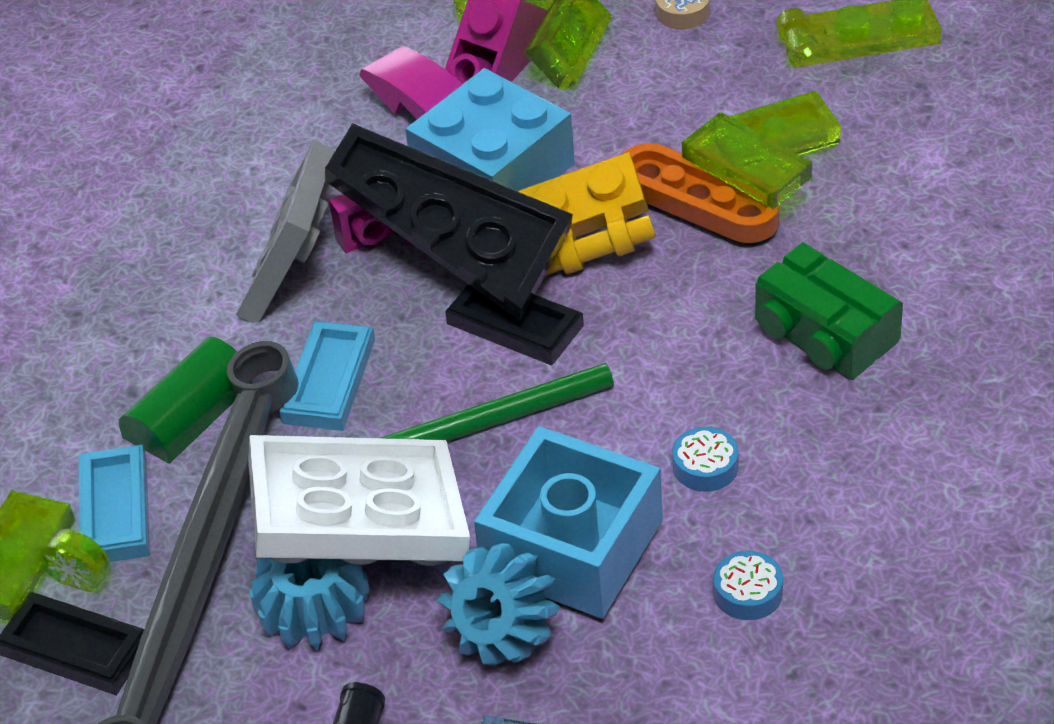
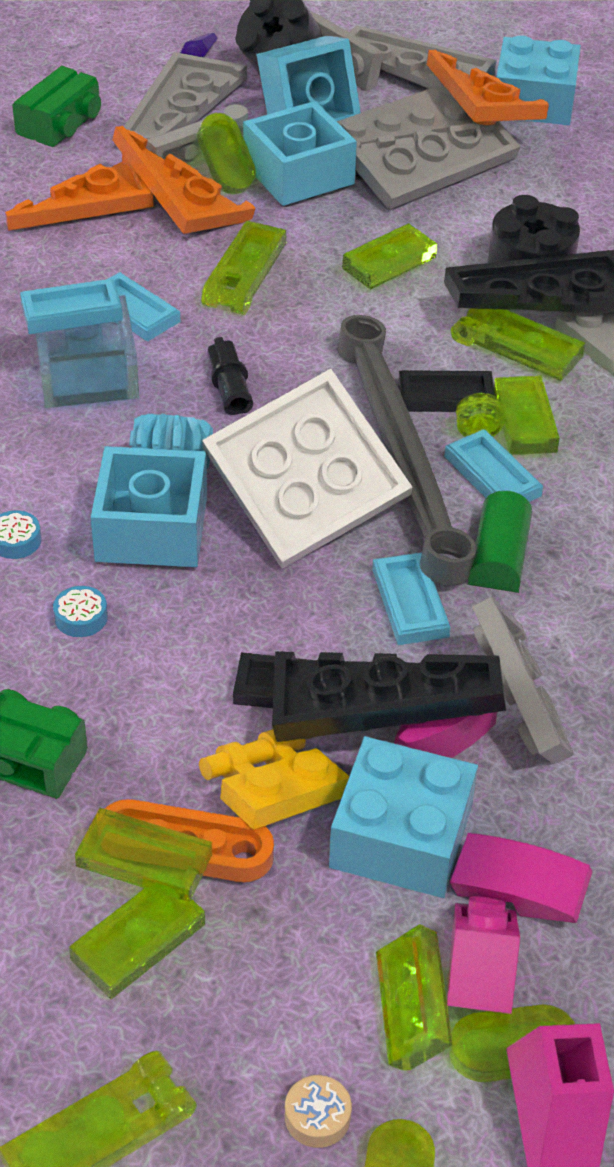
camera: 150 degrees right, 0 degrees up
(511, 406) = (262, 604): green bar -> none

